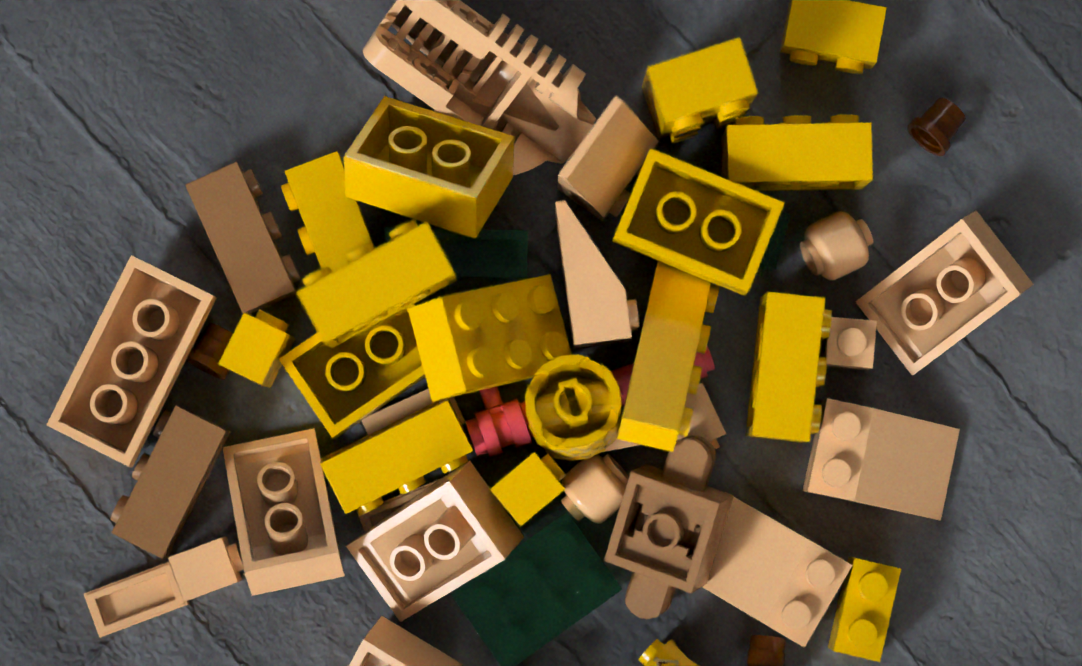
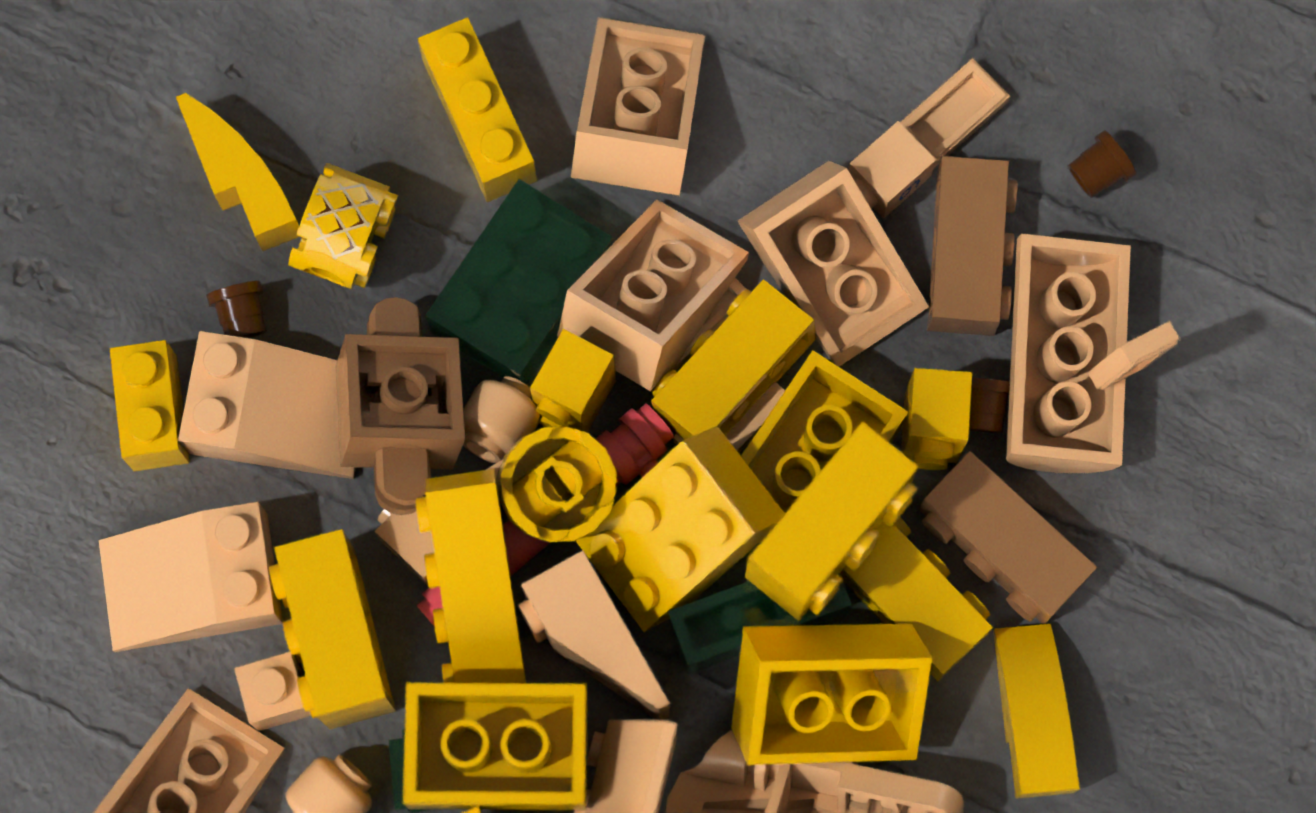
camera: 160 degrees right, 10 degrees down
(37, 505) = (1101, 165): none -> reddish brown piece
(87, 325) = (1134, 356): none -> light nougat tile
(278, 100) = (1035, 711): none -> yellow slope

